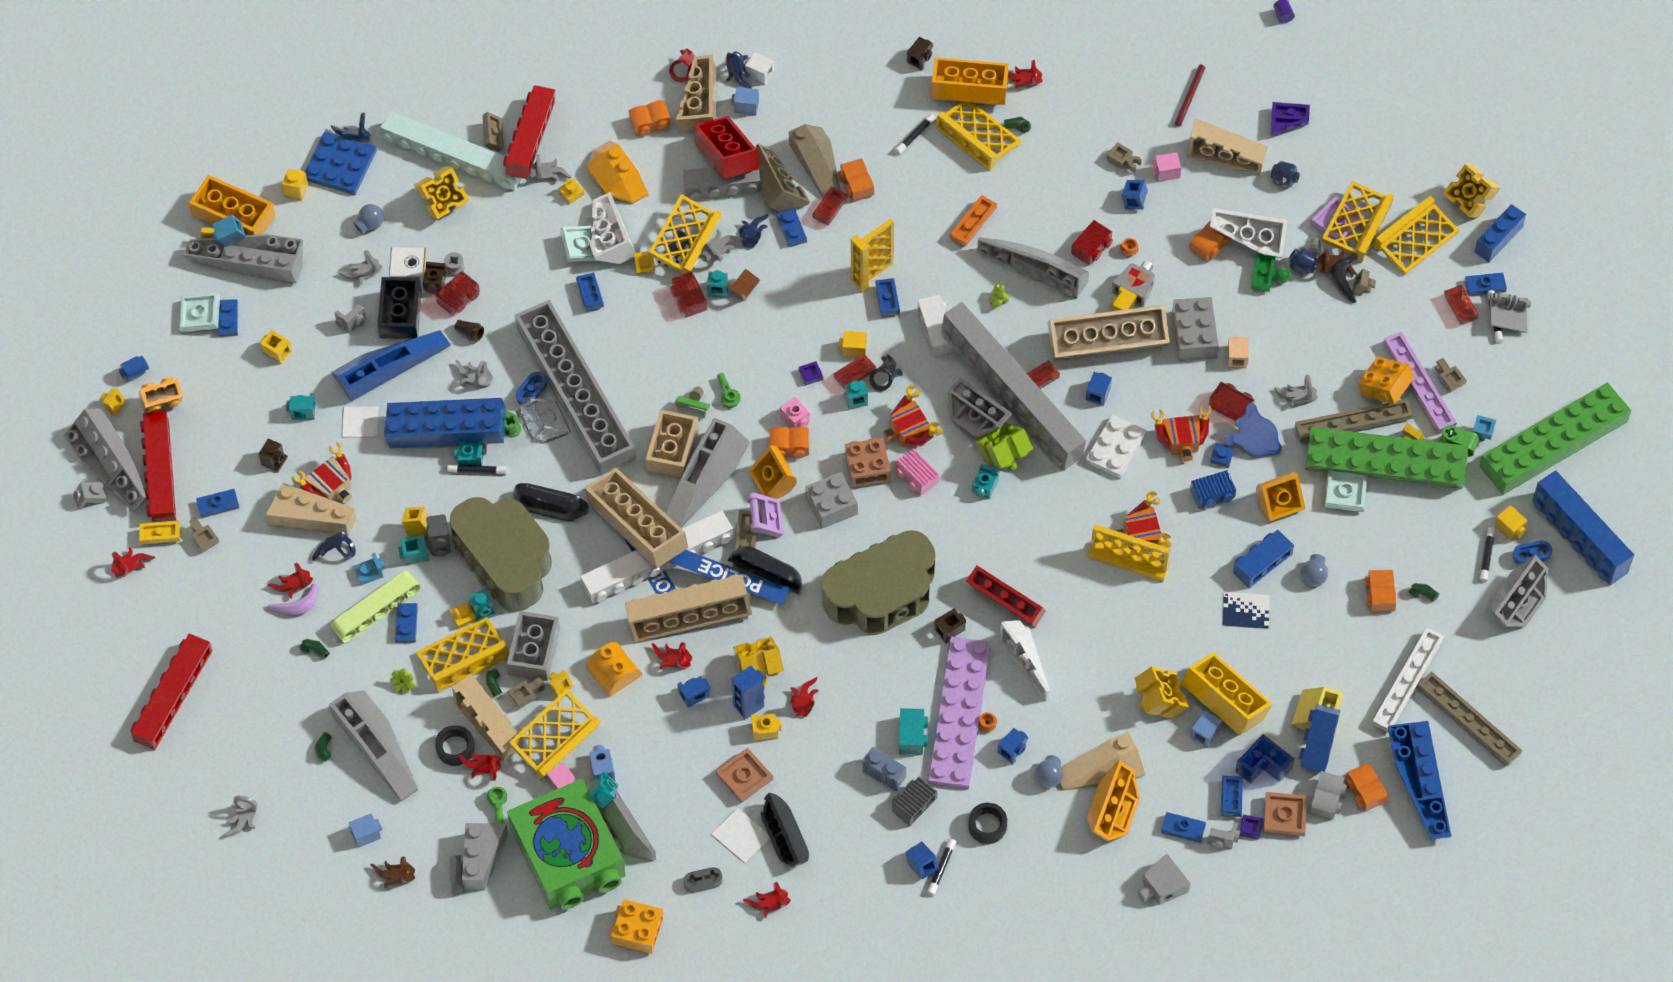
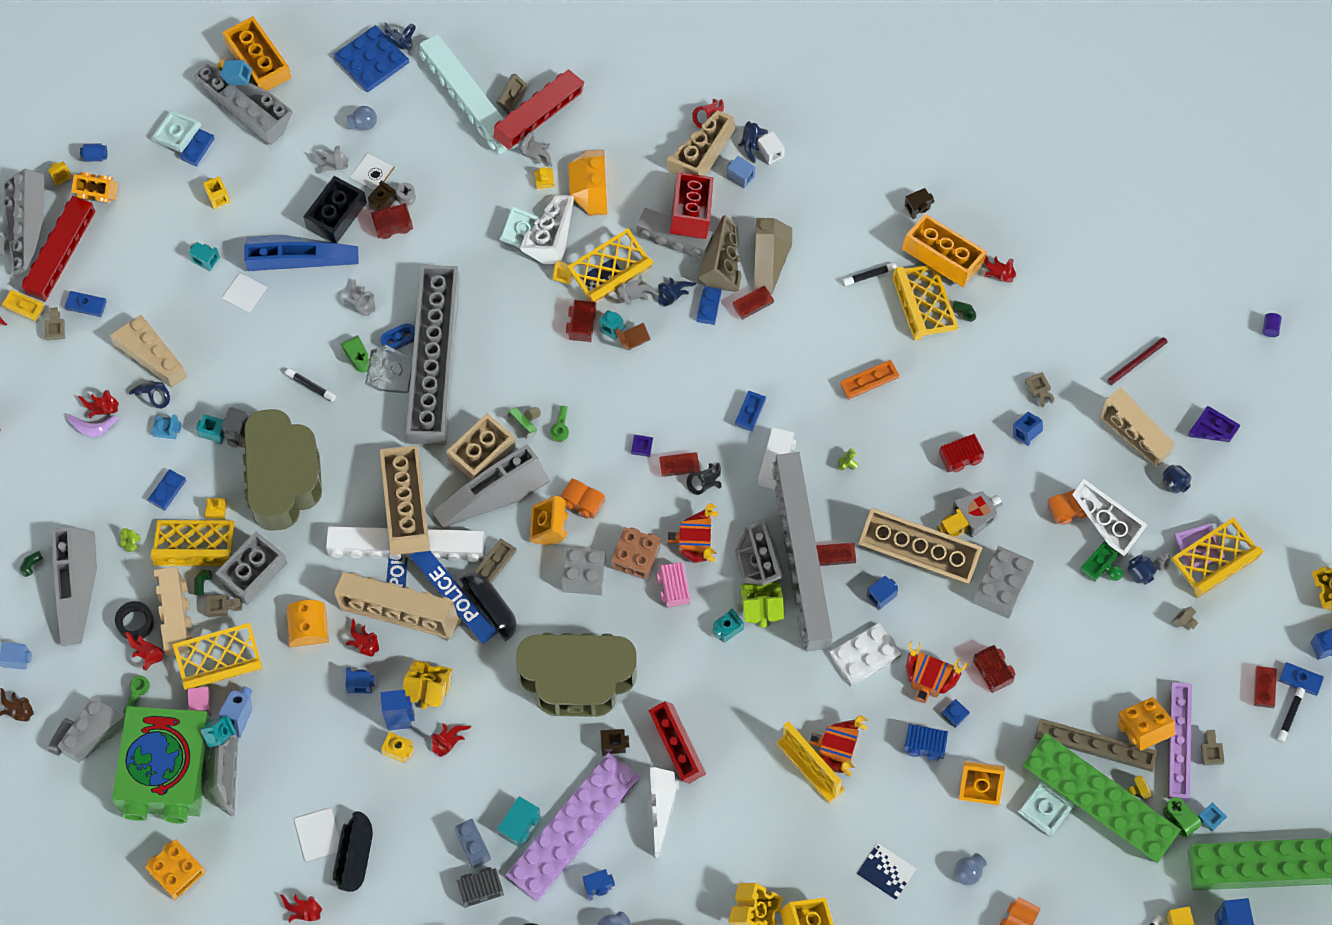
camera: 30 degrees right, 5 degrees up
(272, 455) = (153, 285): dark brown brick -> none
(294, 184) = (321, 58): yellow brick -> none
(315, 645) = (79, 468): dark green arm -> none
(329, 479) = (183, 331): torso -> none
(352, 319) = (292, 200): light grey bracket -> none
(375, 606) = (149, 462): yellowish green beam -> none
(415, 521) = (224, 401): yellow brick -> none
(441, 192) = (431, 126): yellow brick -> none
(445, 422) = (305, 331): blue brick -> none
(469, 453) = (313, 373): teal brick -> none
(471, 330) = (382, 259): dark brown cone -> none
(482, 604) = (234, 508): teal brick -> none
(550, 502) = (348, 447): black brick -> none
(560, 682) = (253, 613): yellow tile -> none
(589, 291) = (501, 275): blue plate -> none
(649, 117) = (649, 146): orange brick -> none
(703, 880) = (260, 853): dark grey beam -> none
(744, 775) = (353, 781): nougat plate -> none
(770, 515) = (523, 558): lavender plate -> none
(794, 413) = (603, 476): bright pink brick -> none
(853, 344) = (693, 439): yellow brick -> none
(856, 179) = (791, 290): orange brick -> none
(856, 390) = (668, 483): teal brick -> none
(870, 258) = (740, 366): yellow fence -> none
(987, 717) = (590, 854): orange plate -> none
(1037, 264) = (900, 450): light grey wedge -> none
(1129, 242) = (993, 470): orange plate -> none
(1167, 167) = (1072, 417): bright pink brick -> none
(1237, 352) = (1029, 624): light nougat brick -> none
(1255, 433) = (996, 710): blue tile -> none
(1263, 558) = (930, 831): blue brick -> none
(1299, 394) = (1062, 693): light grey piece -> none
(1326, 261) = (1167, 584): reddish brown piece -> none
(1339, 276) = (1166, 603): black piece -> none
(1402, 227) = (1256, 584): yellow fence -> none
(1509, 312) = (1305, 718): light grey hinge -> none

